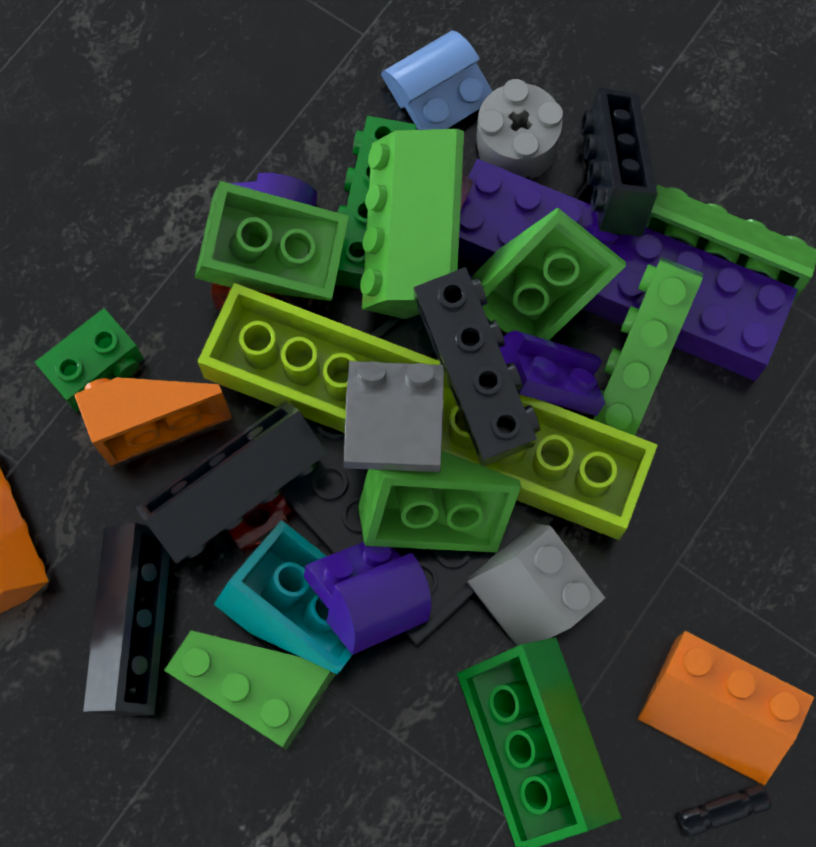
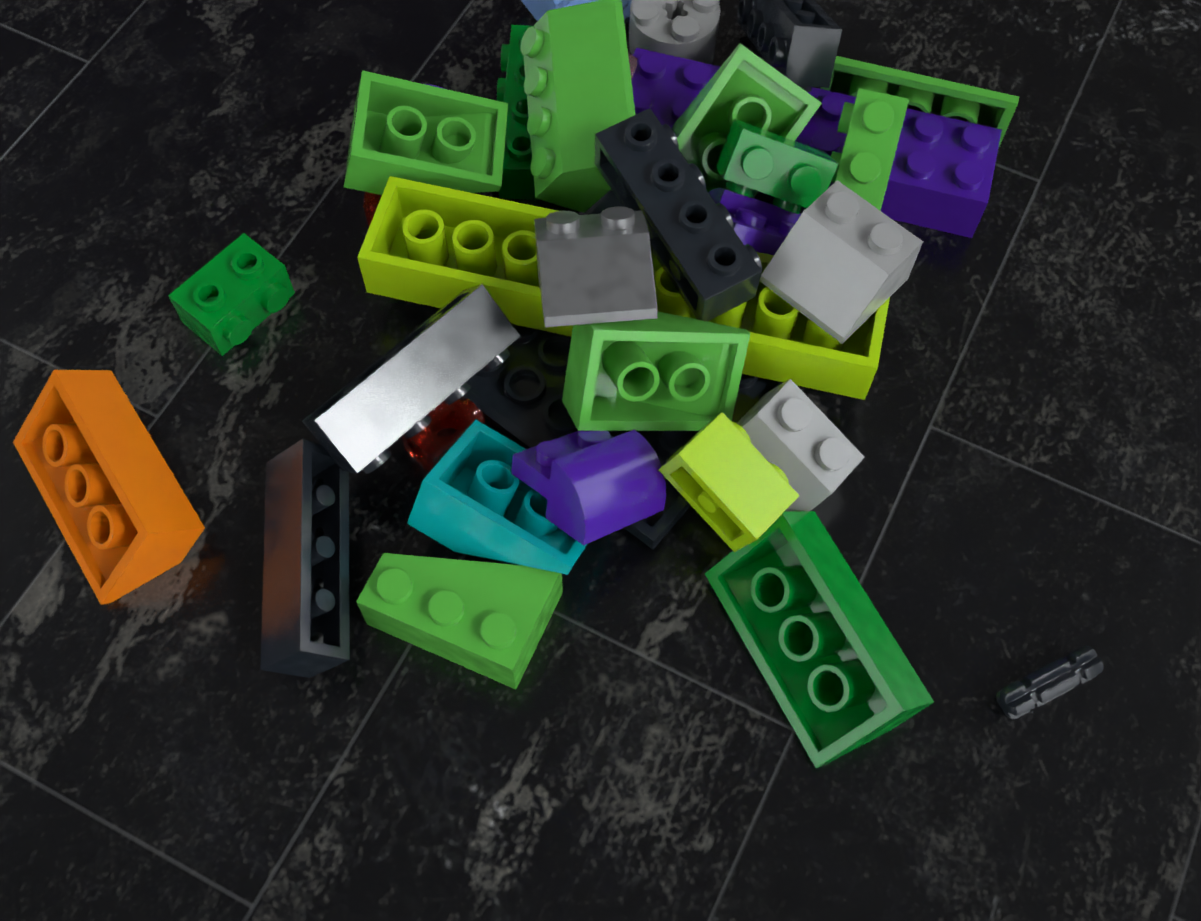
camera: 10 degrees left, 10 degrees down
(144, 414) = (309, 330): orange slope -> none
(482, 612) = (729, 482): none -> lime brick
(575, 319) = (775, 166): none -> green brick
(610, 430) = (841, 261): none -> light grey slope
(725, 708) = (1025, 564): orange slope -> none

